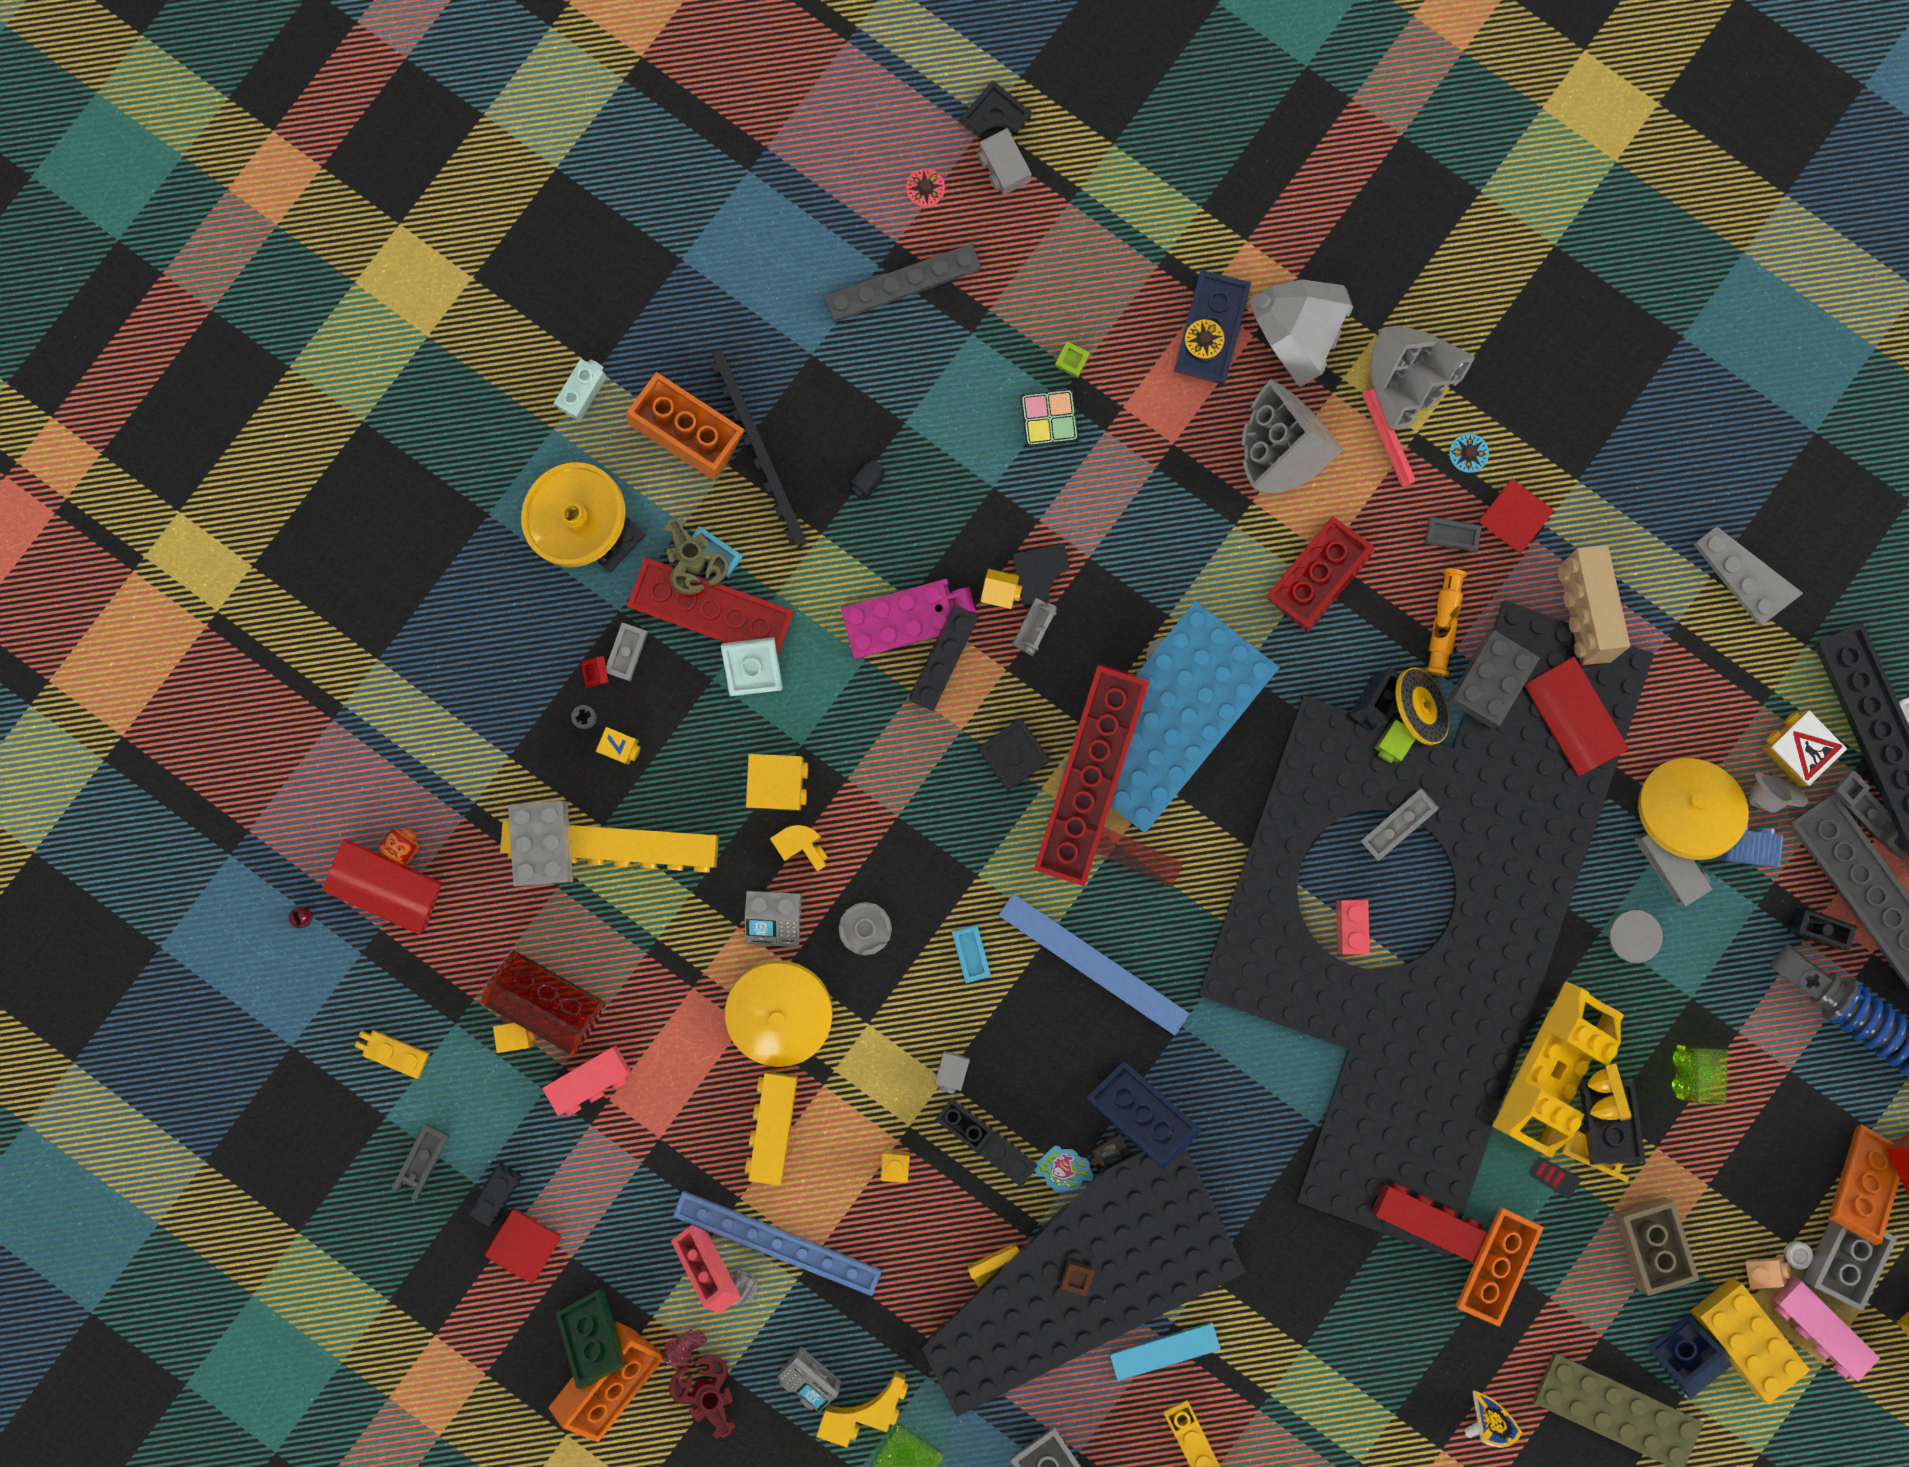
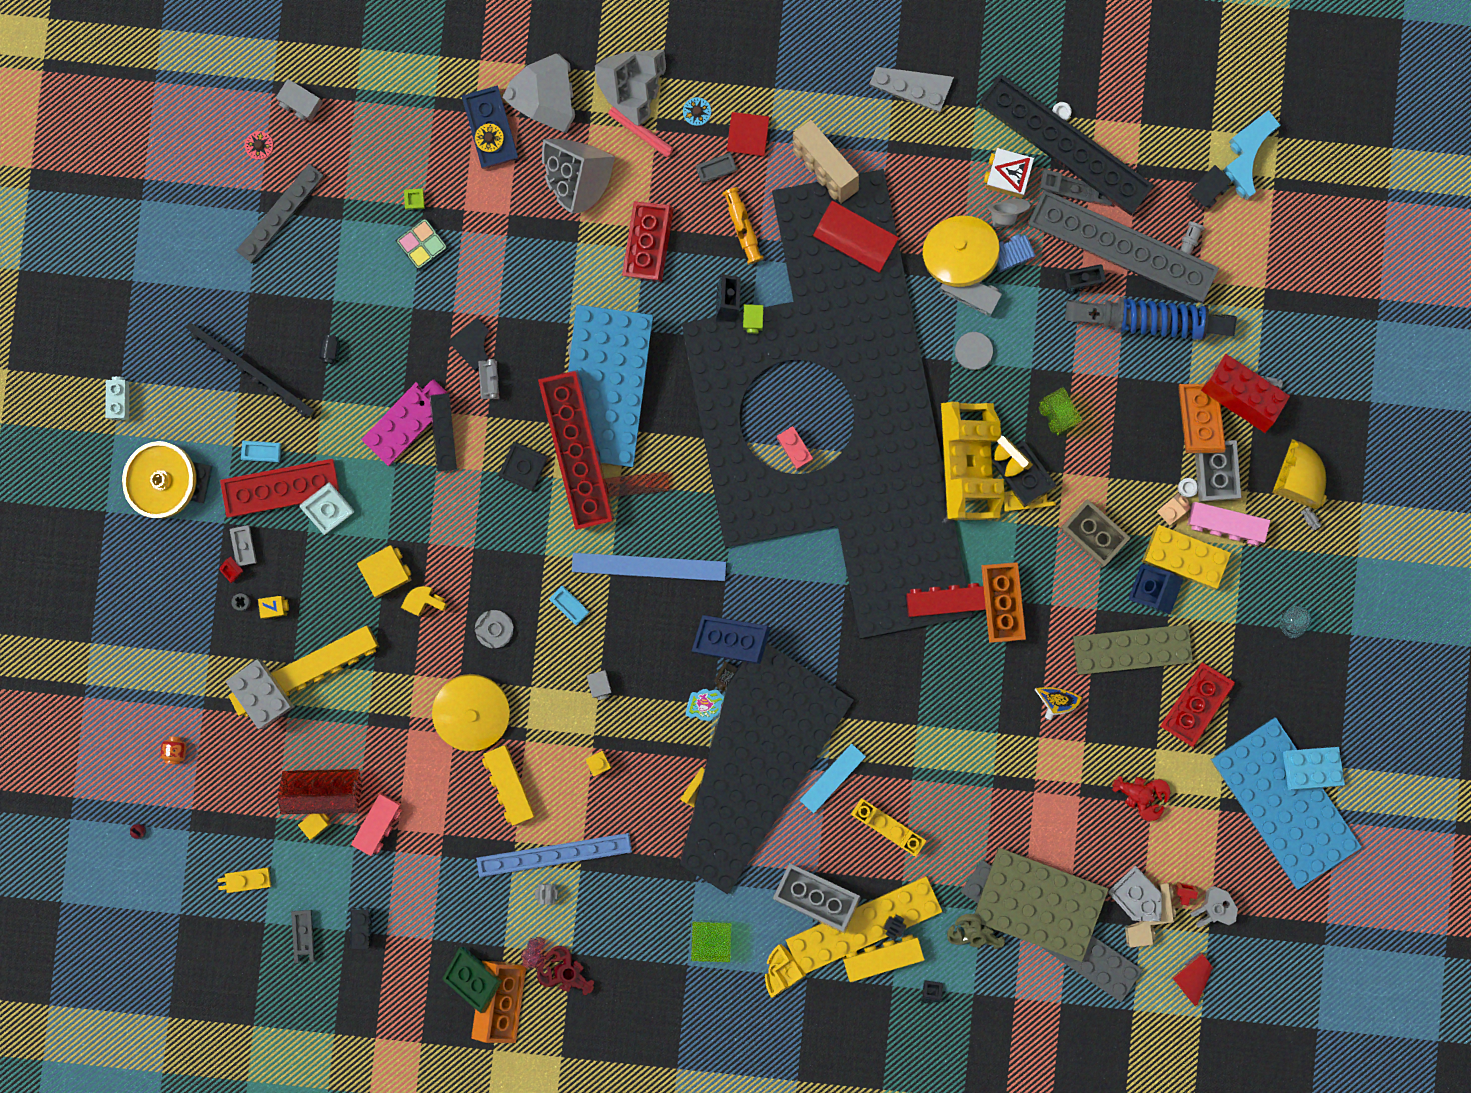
camera: 20 degrees left, 0 degrees up
(382, 886) = (177, 780): red slope -> none
(522, 1245) = (396, 950): red slope -> none
(684, 426) = (196, 383): orange slope -> none
(692, 559) = (250, 463): olive animal -> none
(705, 1269) = (517, 894): coral brick -> none
(773, 918) = (432, 656): light grey slope -> none
(809, 1380) = (622, 925): light grey slope -> none
(840, 1425) = (658, 941): yellow arch -> none
(986, 1142) = (646, 715): black slope -> none
(995, 111) = (274, 71): black tile -> none
(1001, 589) = (453, 368): yellow brick -> none
(1077, 1278) = (748, 763): reddish brown tile -> none
(1400, 824) = (786, 367): light grey plate -> none
(1422, 706) = (756, 286): piece -> none
(1493, 679) = (790, 244): dark grey brick -> none
(1555, 1177) = (1015, 528): black sticker -> none

